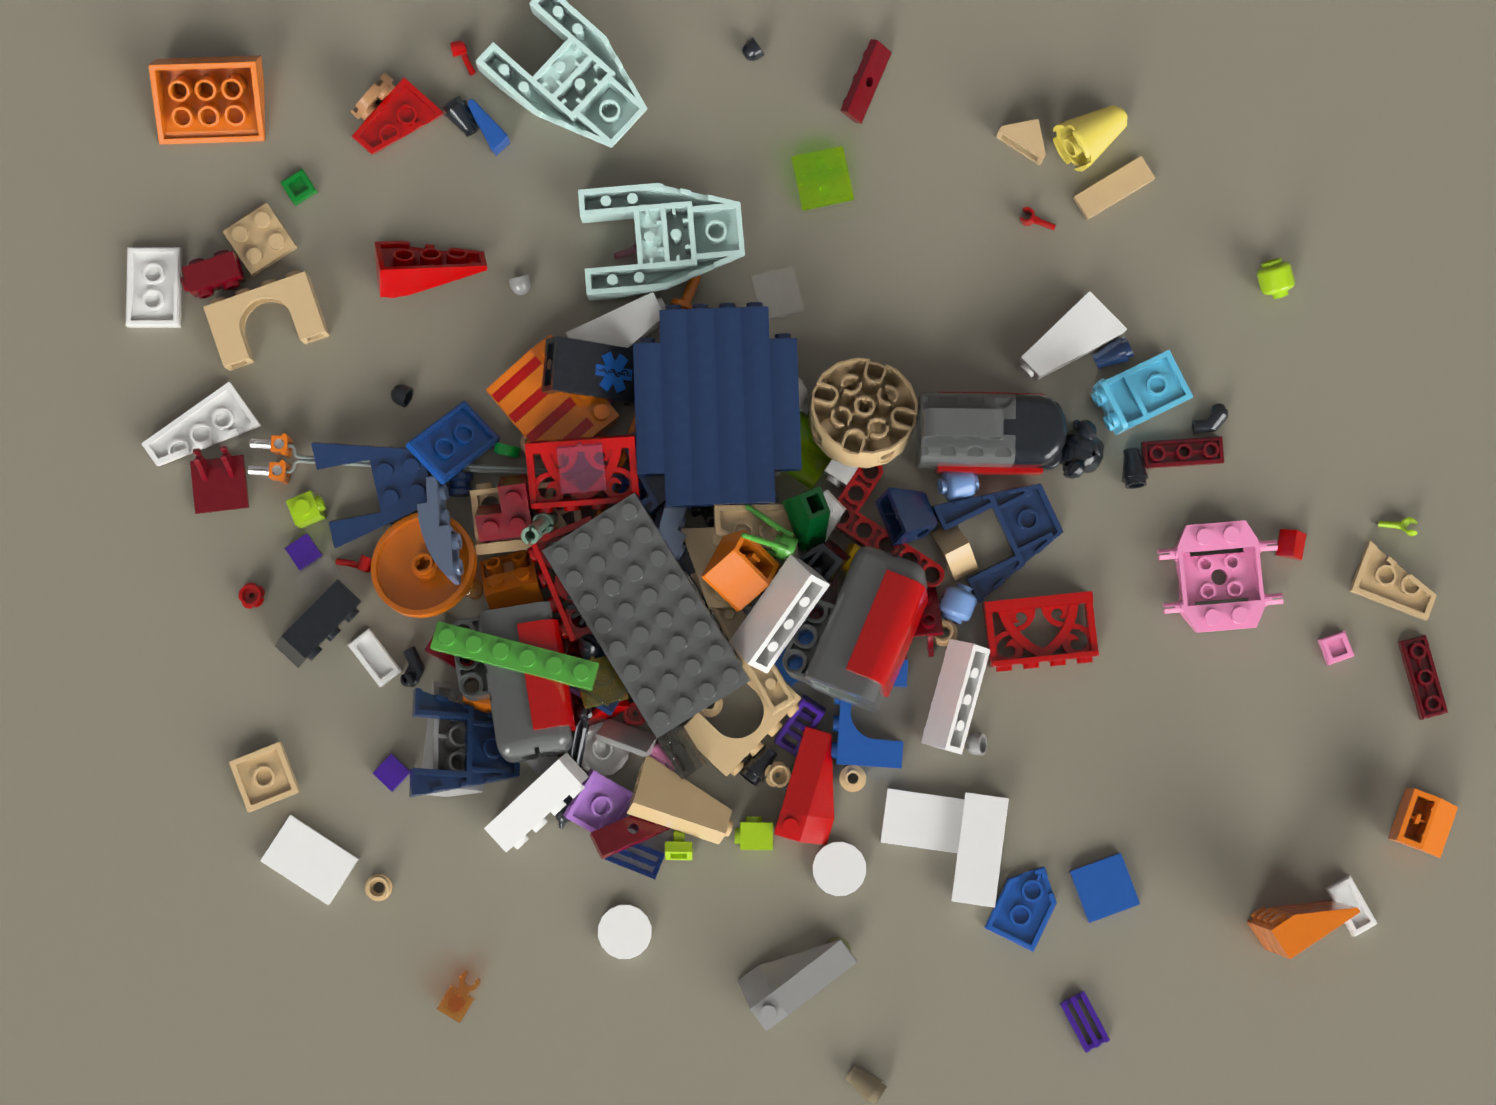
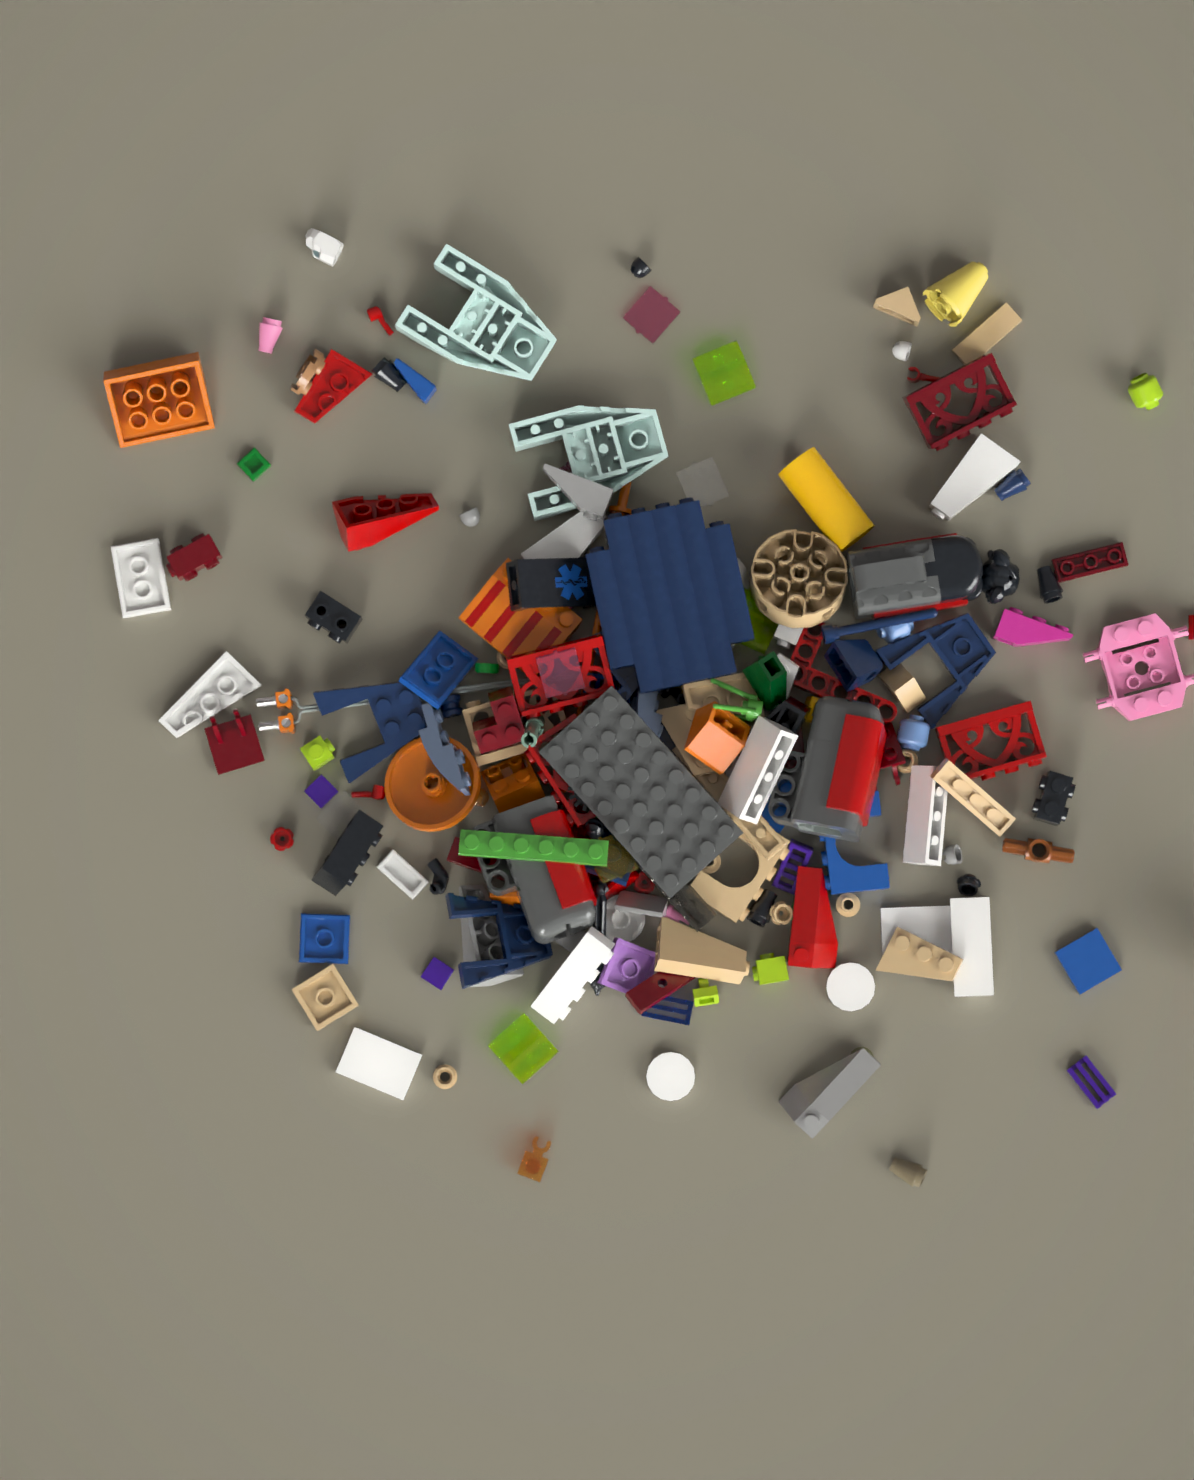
camera: 10 degrees left, 0 degrees up
(229, 315) = (214, 591): tan arch -> none
(259, 239) = (228, 518): tan plate -> none
(277, 712) = (324, 938): none -> blue tile
(340, 51) = (268, 334): none -> bright pink cone
(350, 366) = (335, 615): none -> black brick
(402, 395) = (382, 635): black hinge -> none
(469, 871) = (523, 1048): none -> clear neon green slope
(647, 280) = (584, 494): none -> light grey slope
(756, 103) = (651, 315): none -> clear pink piece
(866, 81) = (747, 278): dark red tile -> none
(888, 478) = (832, 632): none -> dark blue piece
(908, 332) = (826, 499): none -> yellow piece
(919, 851) = (917, 957): none -> tan wing
(988, 780) = (968, 884): none -> black plate
(1010, 685) = (972, 797): none -> tan plate
(1019, 187) = (902, 350): none -> white hinge
(1023, 908) = (1019, 992): blue tile -> none
(1038, 241) = (927, 397): none -> dark red fence
(1084, 762) = (1025, 848): none -> dark orange axle
(1095, 513) = (1023, 631): none -> dark pink slope
(1095, 707) = (1051, 805): none -> black brick
(1141, 392) = (1043, 516): medium azure bracket -> none
(1213, 422) = (1113, 529): black arm -> none

